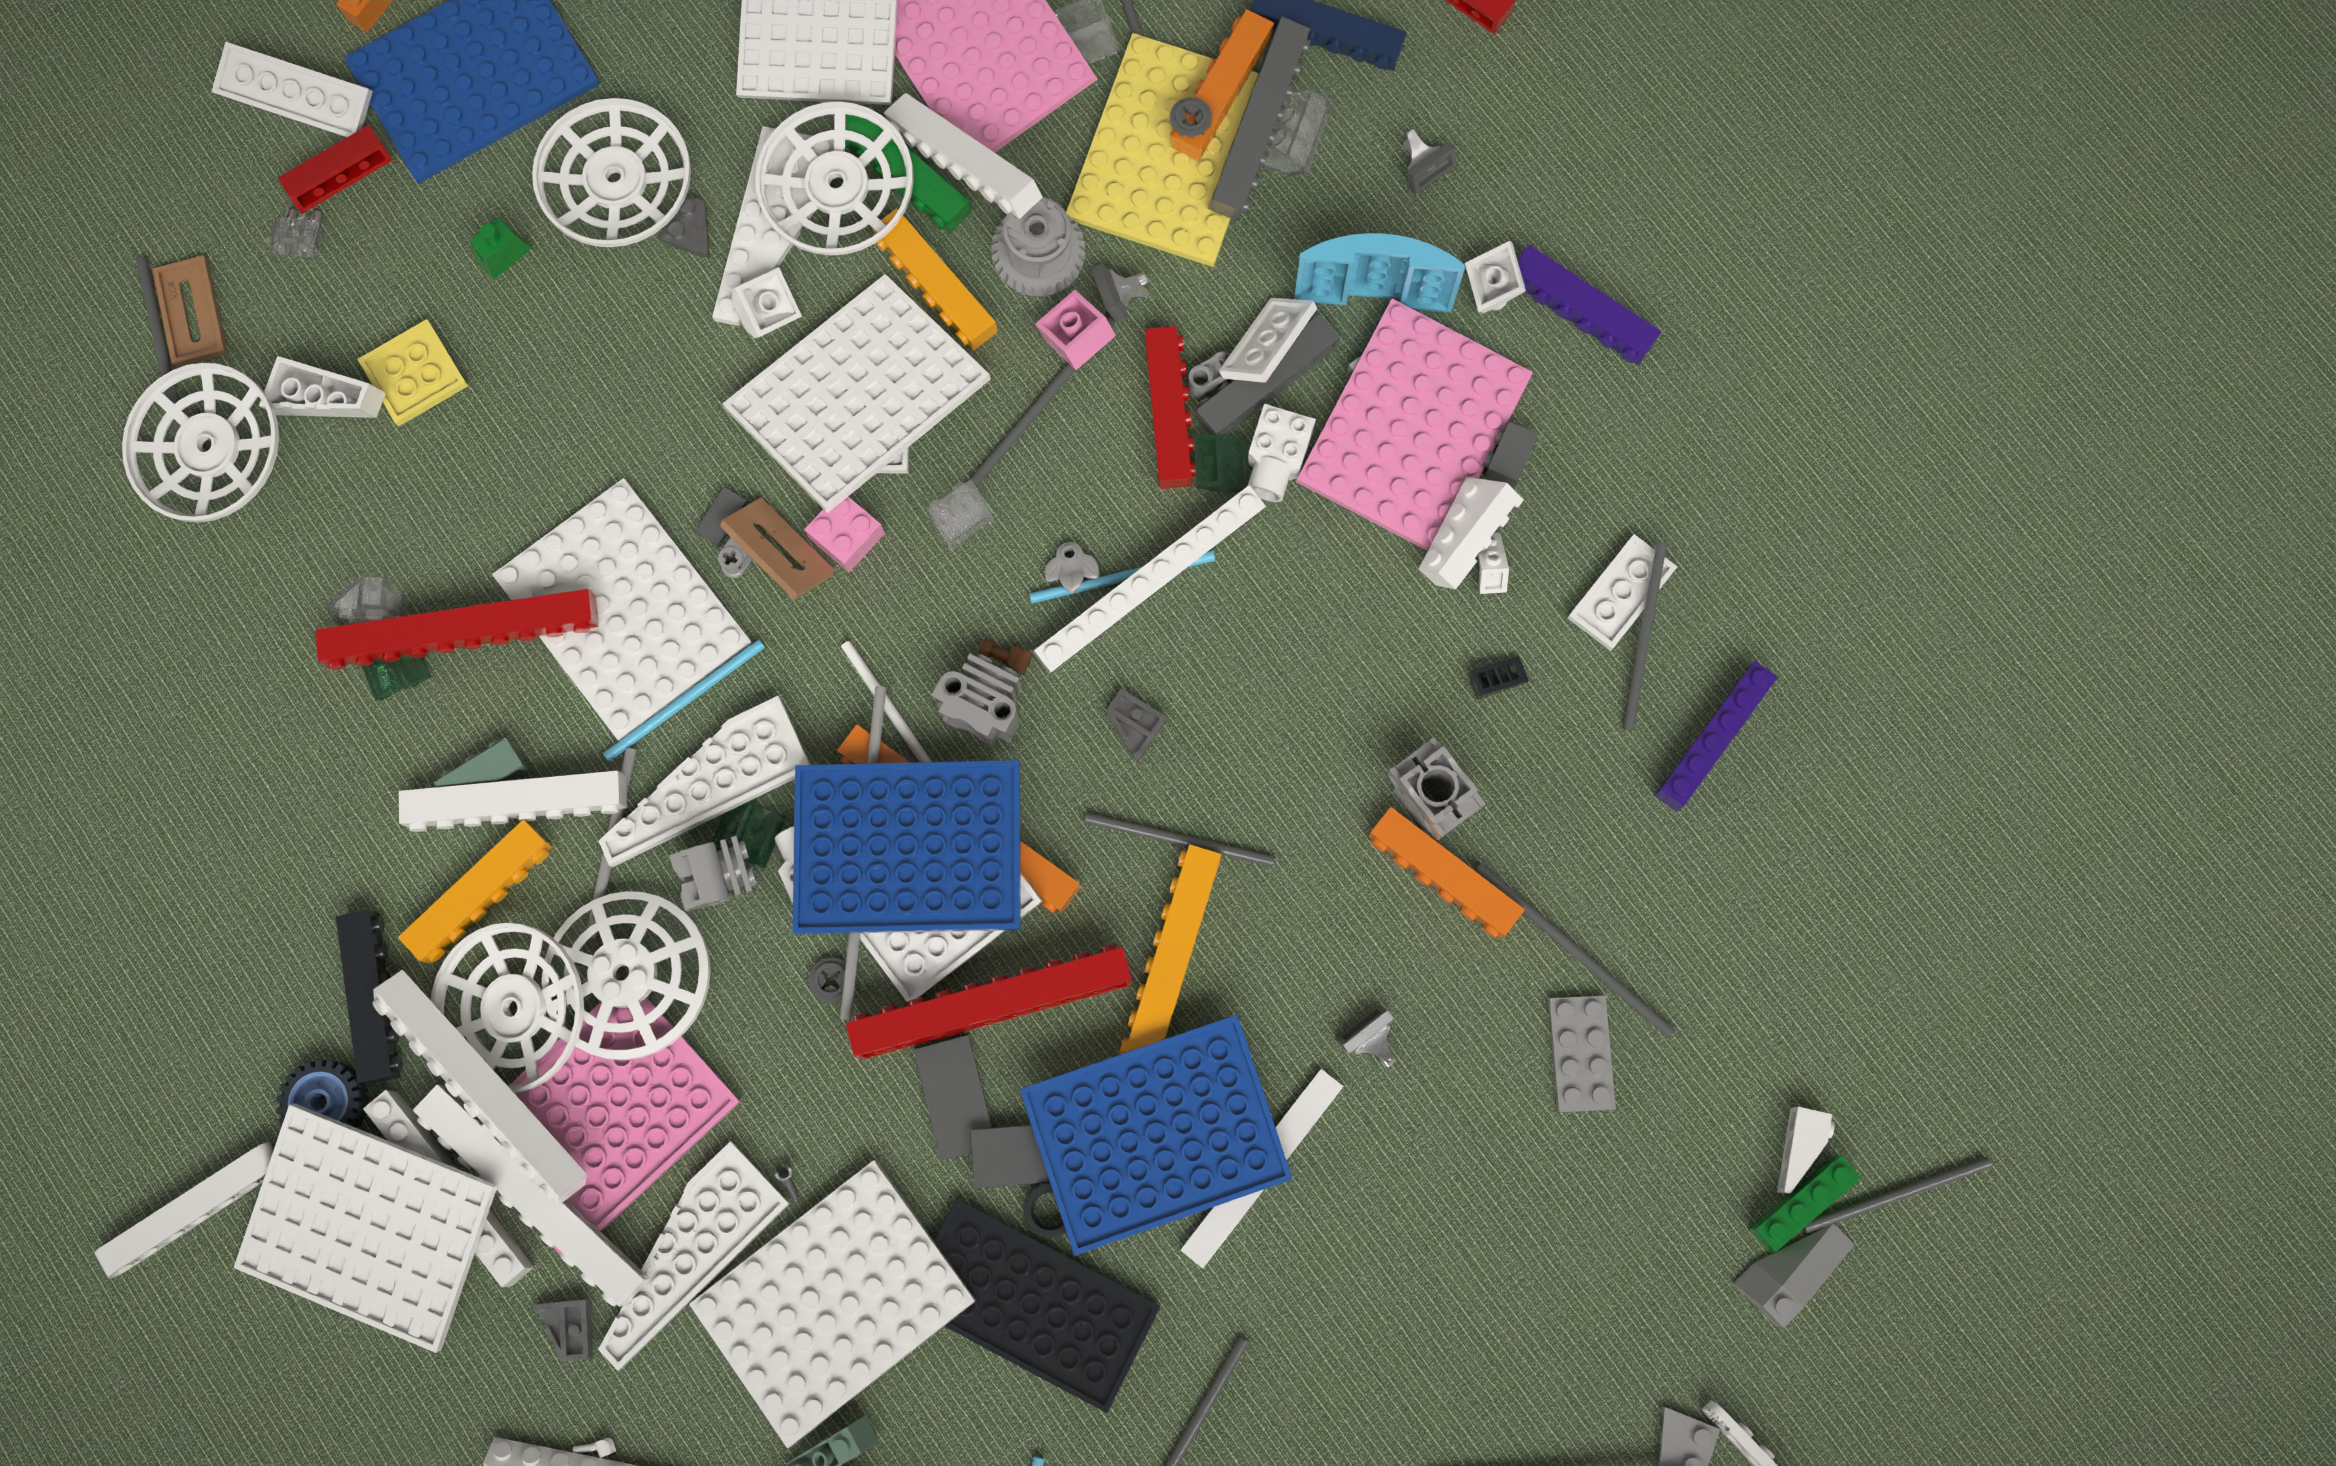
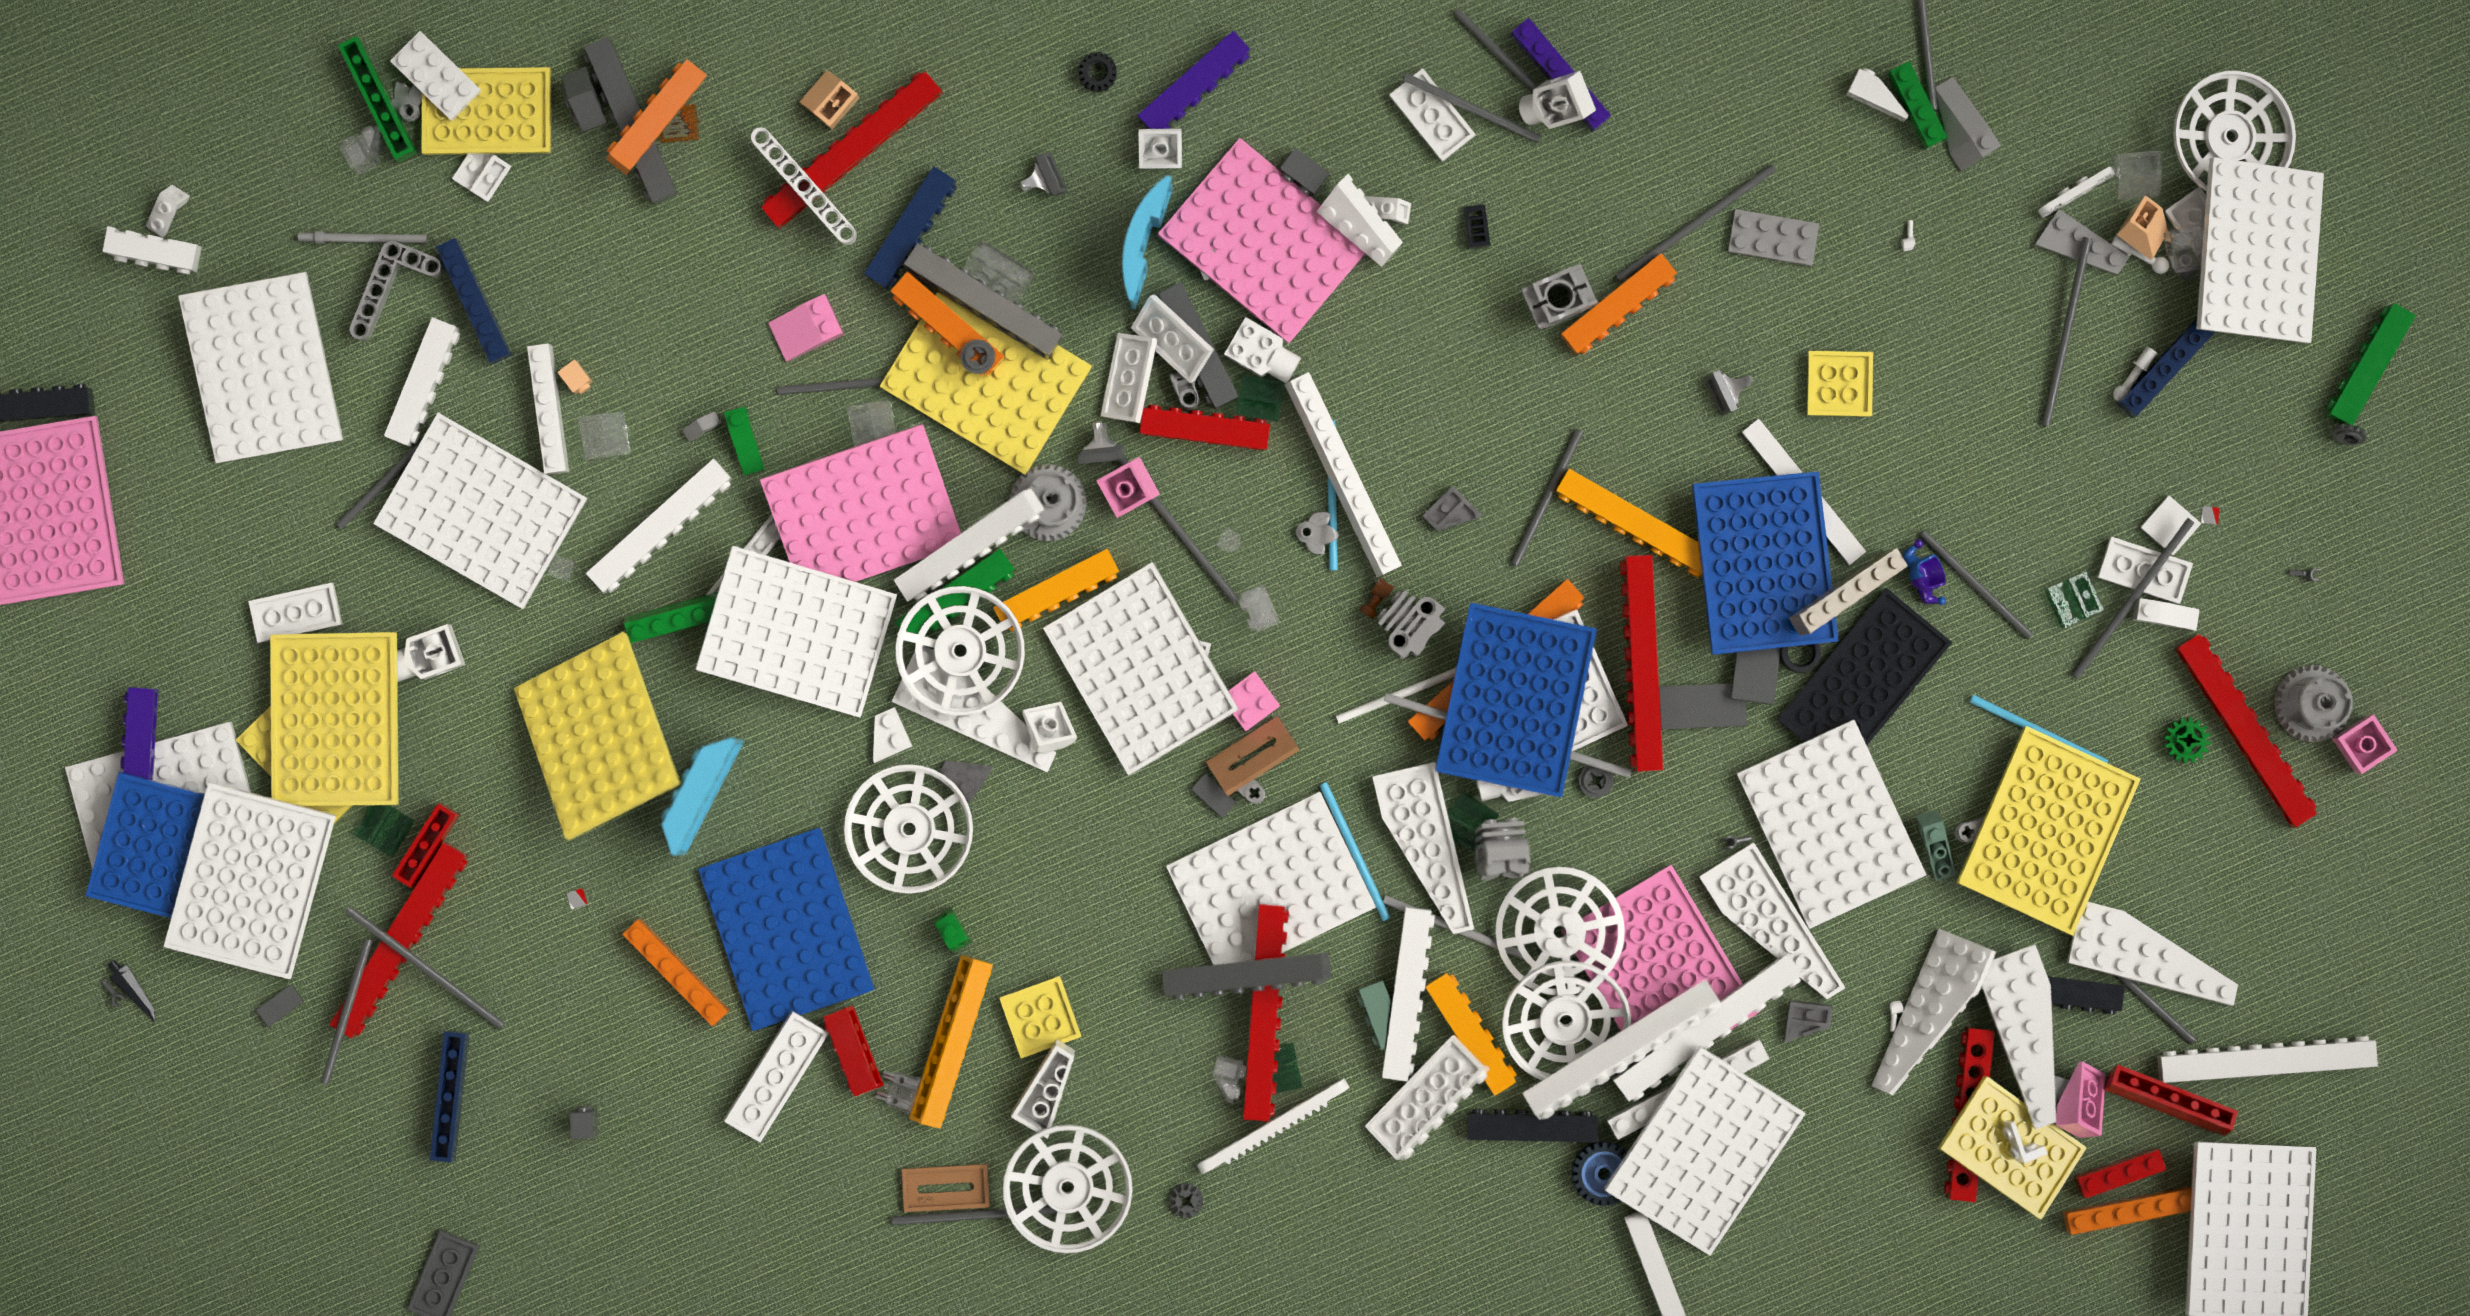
camera: 75 degrees left, 10 degrees up
(214, 604) = (1185, 1190): none -> dark grey gear
(319, 675) = (1272, 1126): none -> white gear
(363, 274) = (950, 1041): none -> light orange brick
(380, 853) = (1427, 1099): none -> white bracket
(494, 592) = (1247, 974): none -> dark grey brick
(722, 133) = (889, 735): none -> white wing
(1038, 467) = (1229, 541): none -> clear tile
(1141, 1253) = (1848, 591): none -> brick
(1190, 1355) = (1925, 573): none -> dark purple piece
(1209, 304) = (1128, 377): none -> white plate
(1414, 1183) = (1839, 383): none -> light yellow plate
(1571, 180) = (1093, 59): none -> black tyre
(1620, 1233) = (1909, 243): none -> white hand
(1683, 732) = (1557, 102): none -> white brick
(1711, 673) = (1513, 67): none -> dark grey piece

